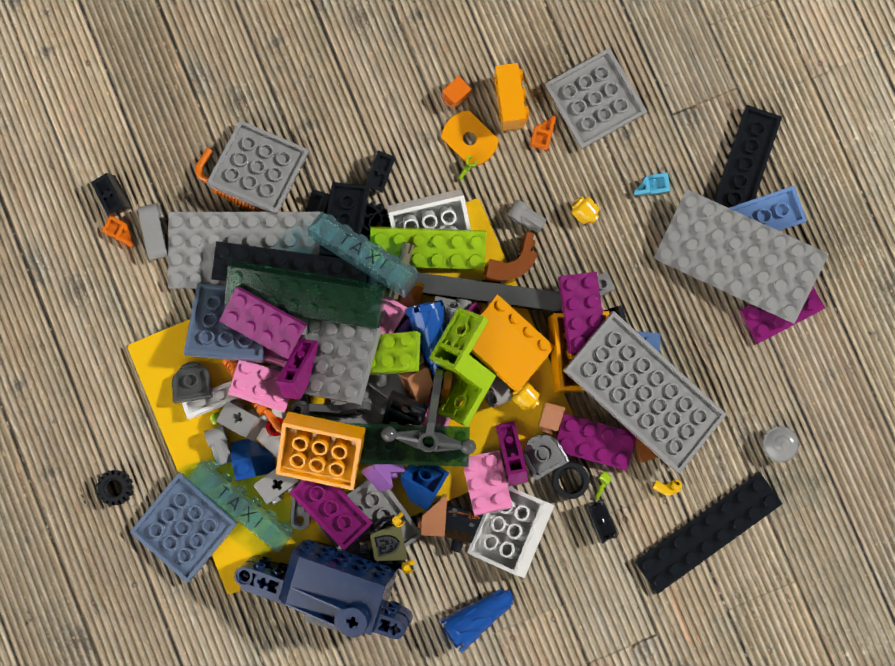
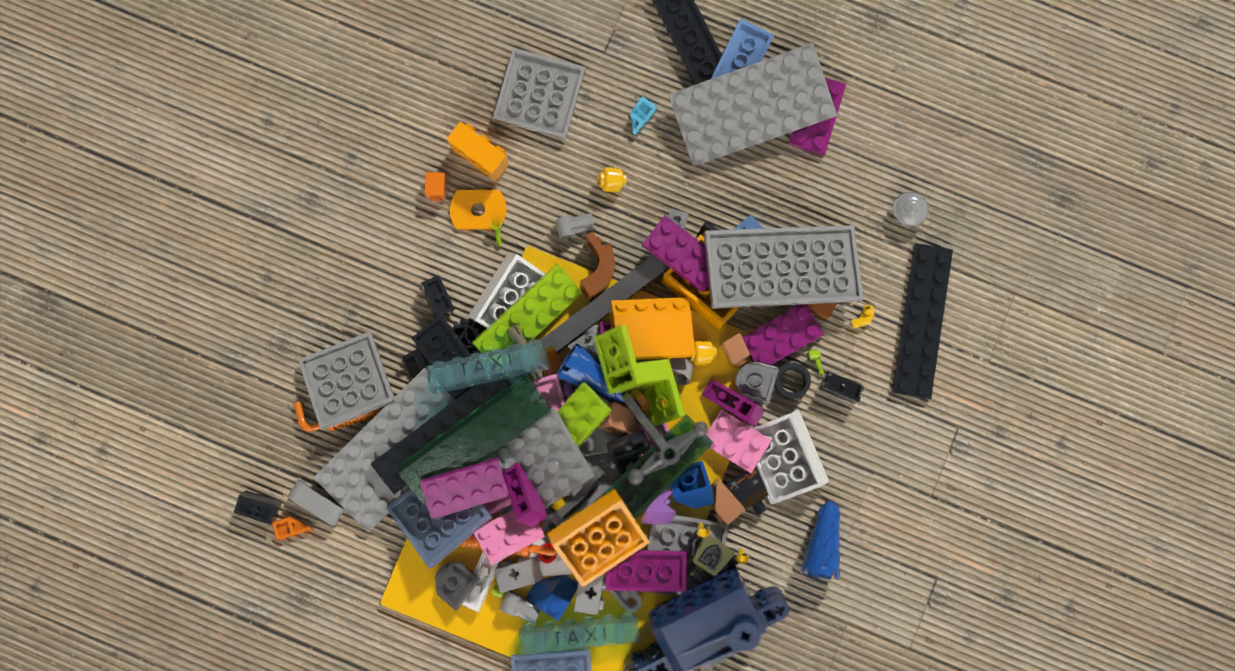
camera: 45 degrees left, 0 degrees up
(542, 134) = (527, 156): orange tile -> none

